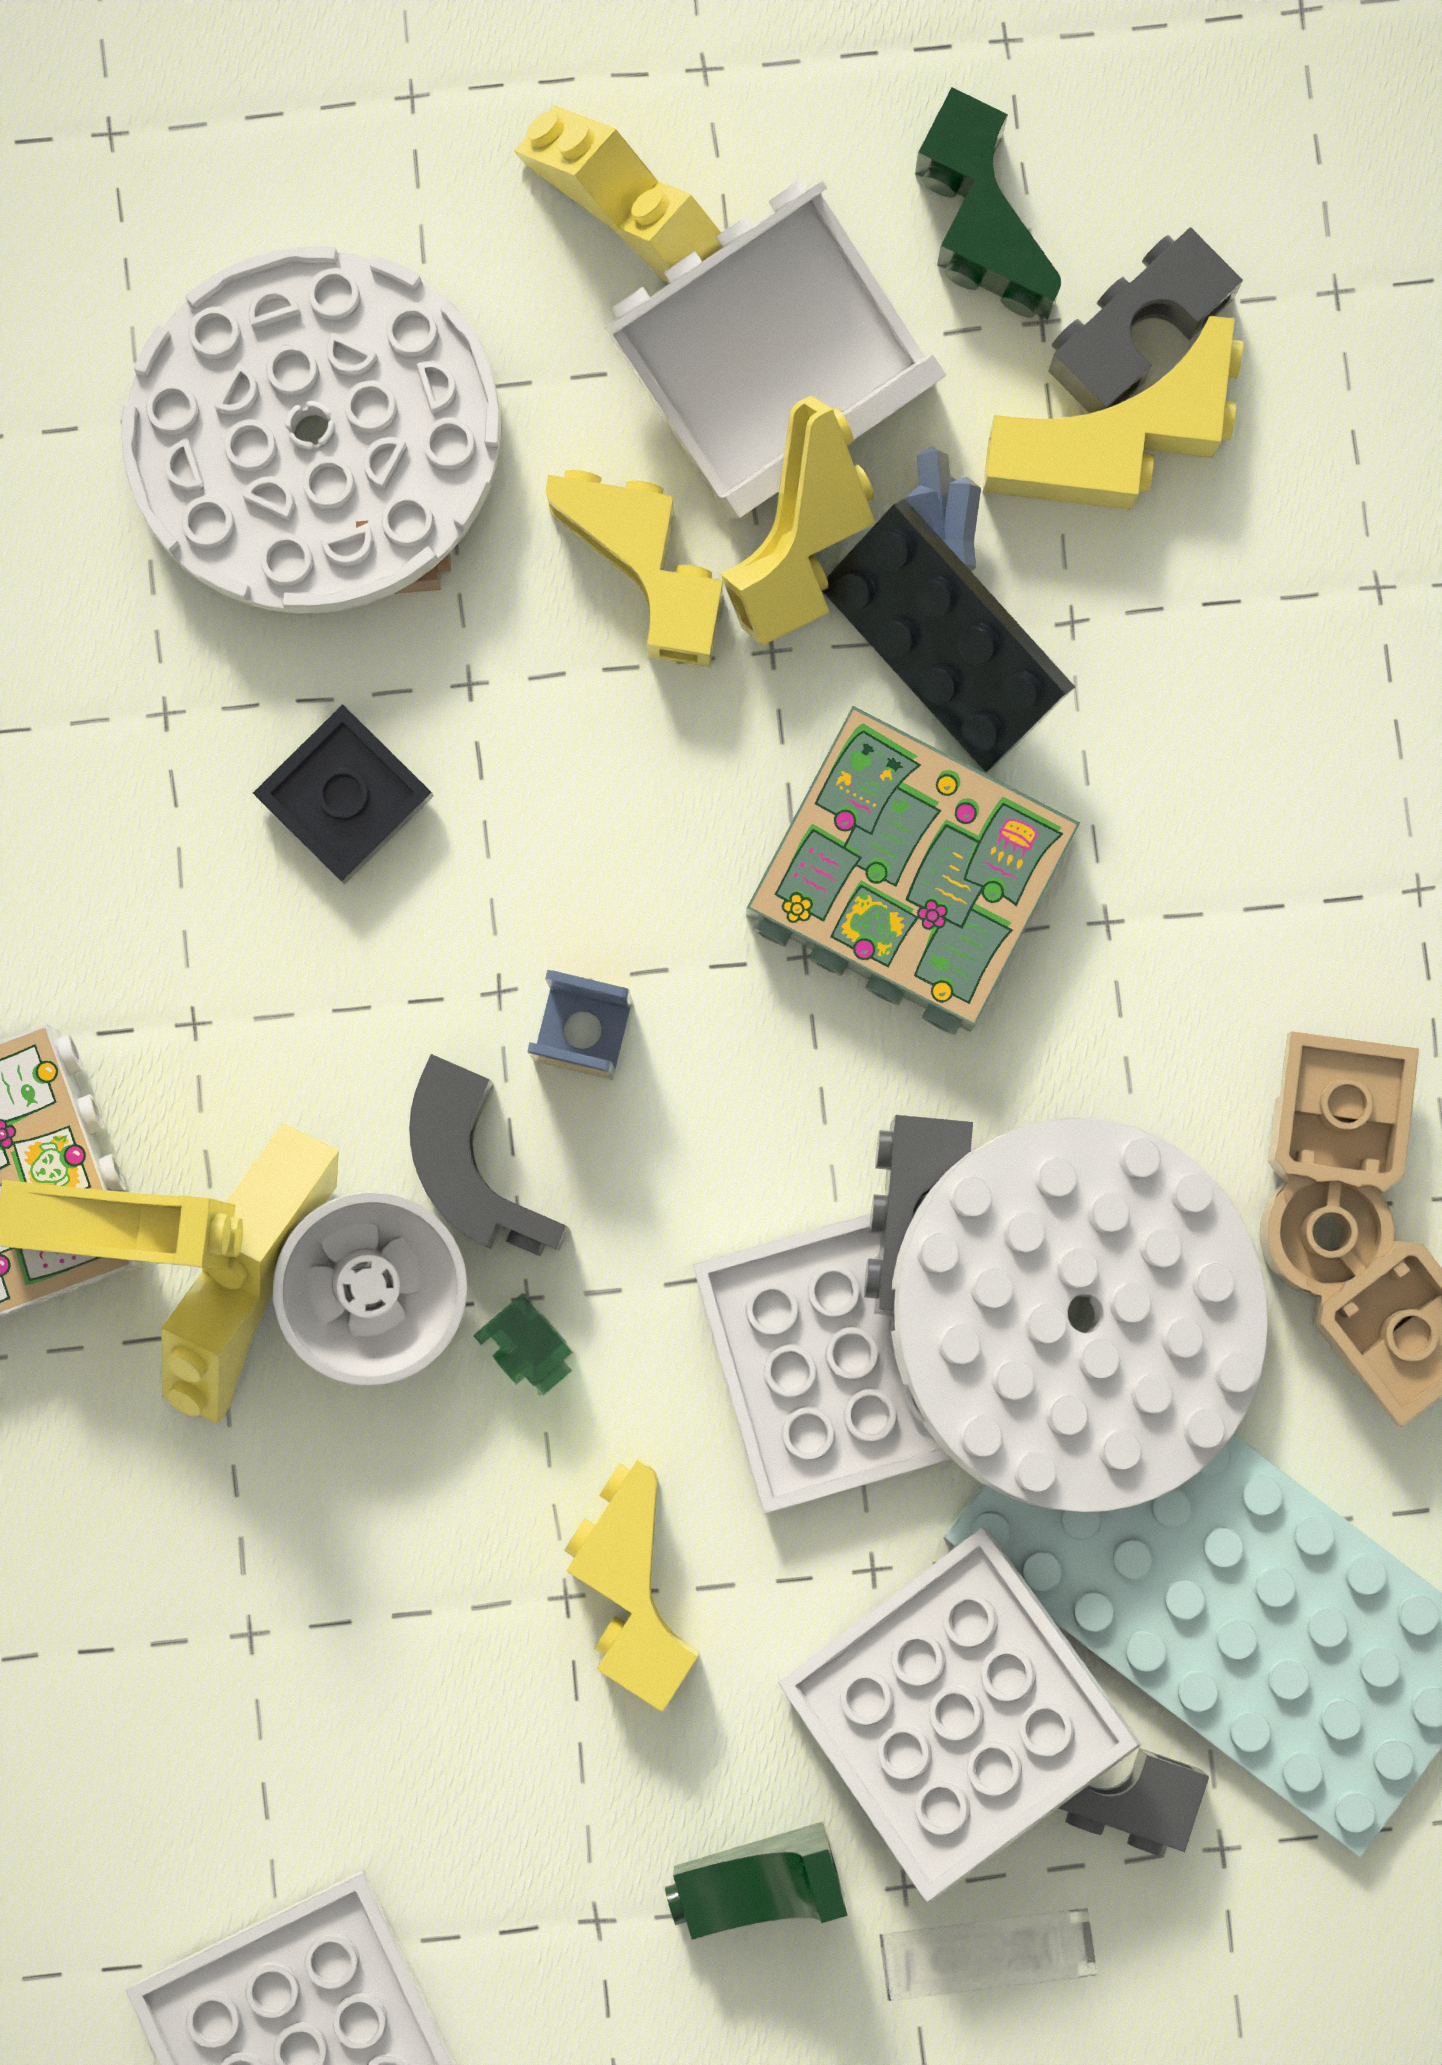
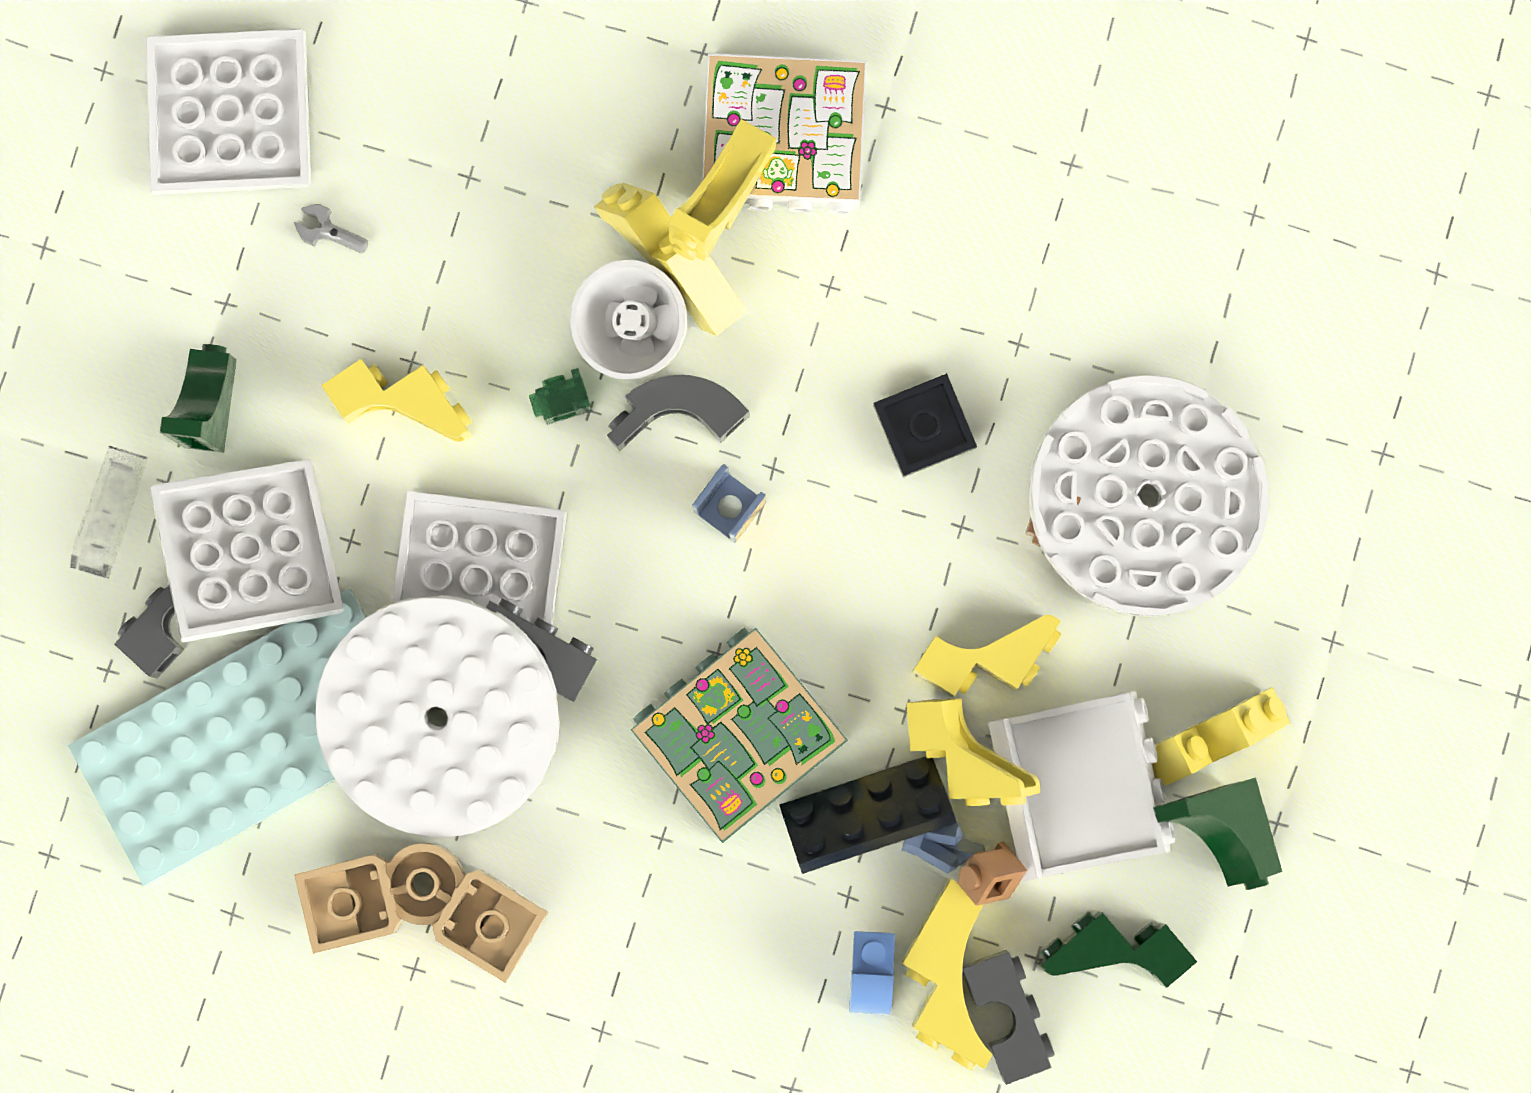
camera: 115 degrees right, 0 degrees up
(420, 1810) = (328, 230): none -> light grey bar
(739, 115) = (1234, 829): none -> dark green arch
(956, 421) = (991, 875): none -> medium nougat brick
(1173, 532) = (872, 973): none -> medium blue brick

